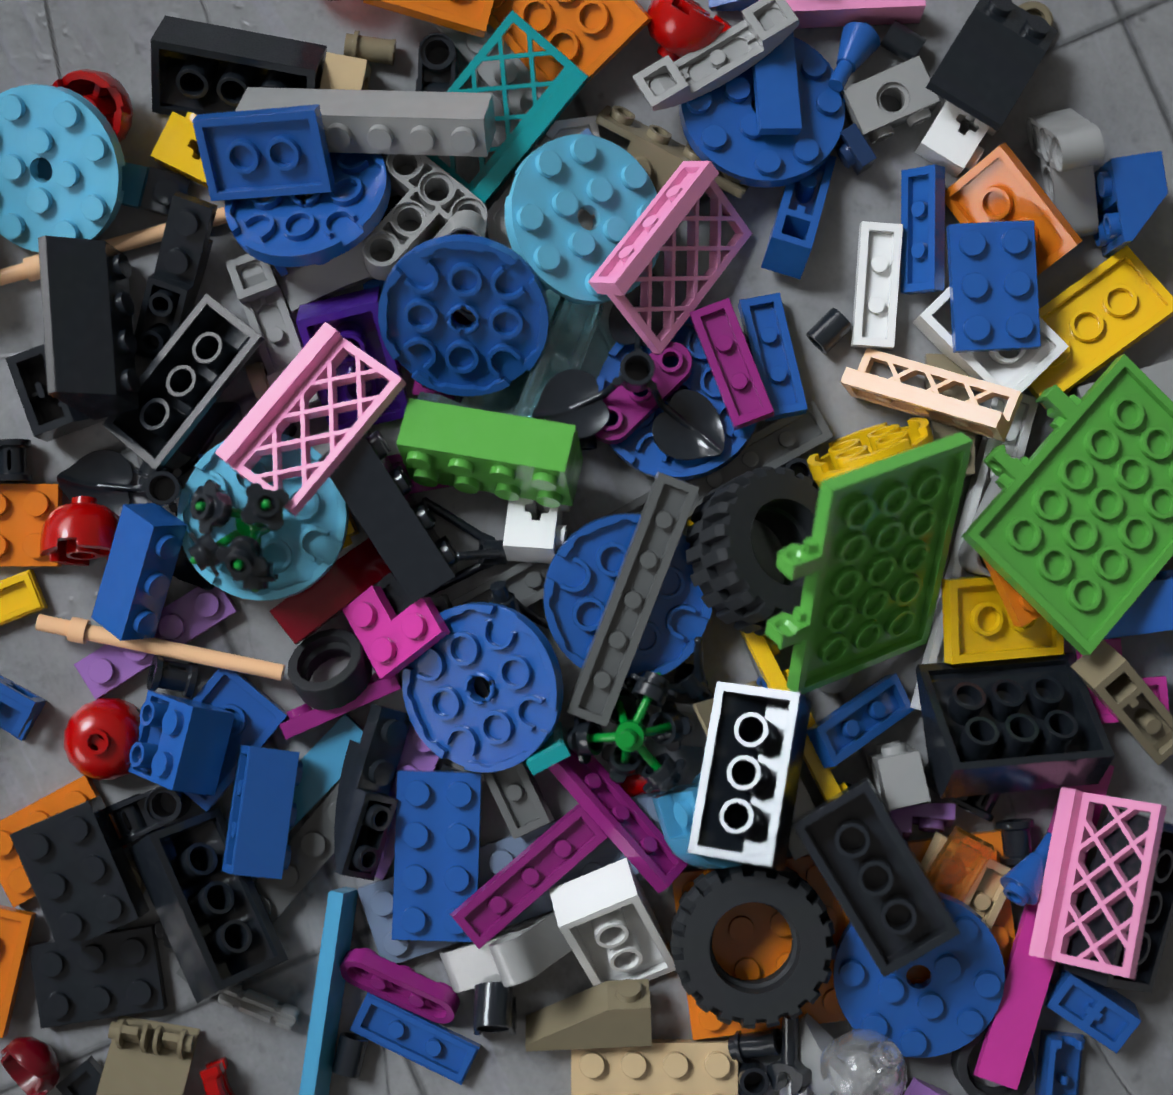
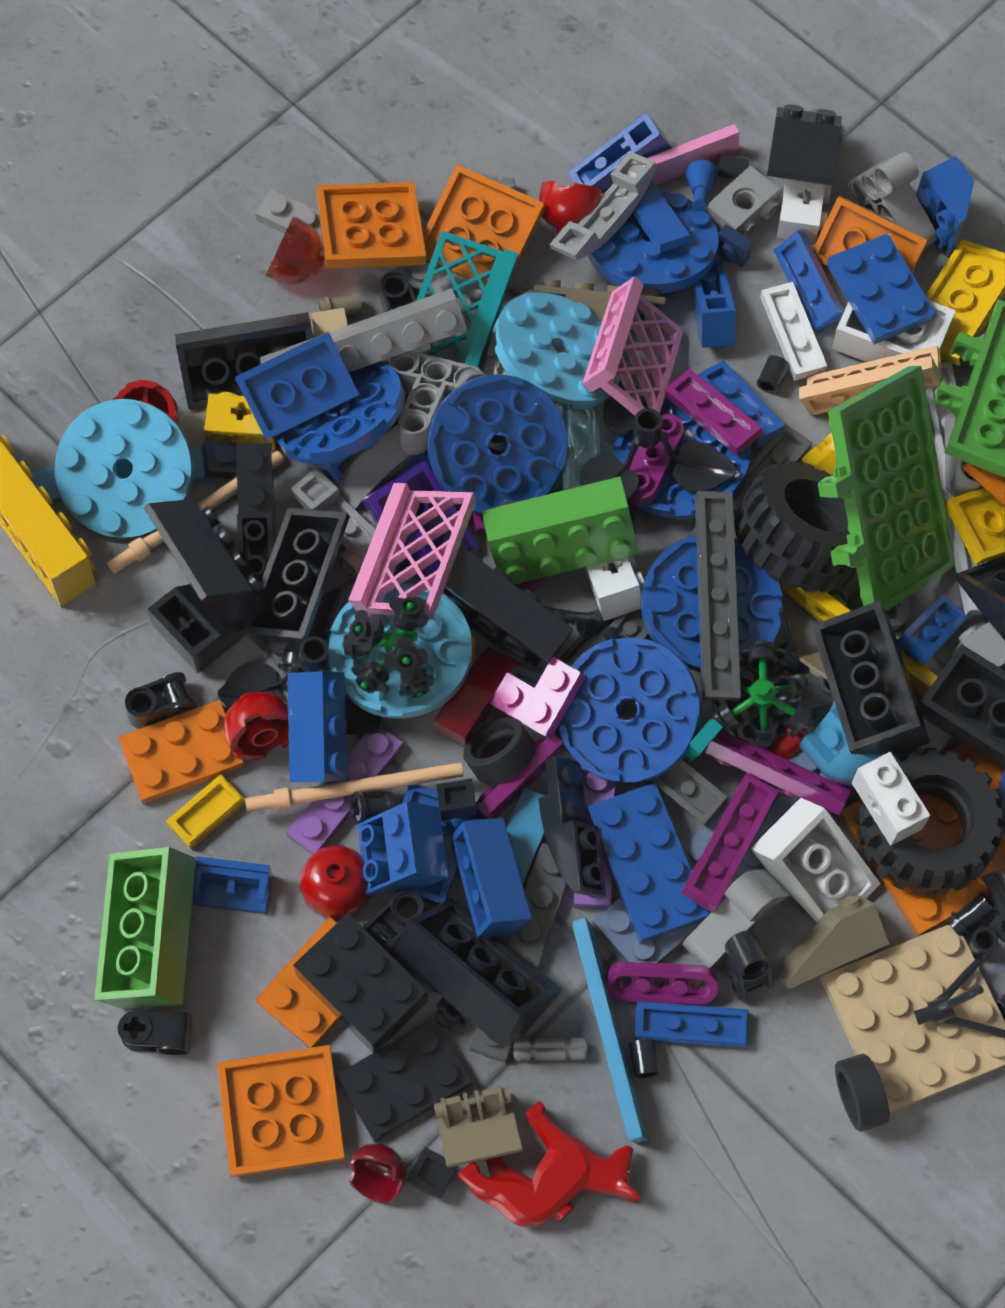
camera: 30 degrees left, 20 degrees down
(260, 709) = (456, 799): none -> black plate
(706, 925) = (890, 798): none -> white brick

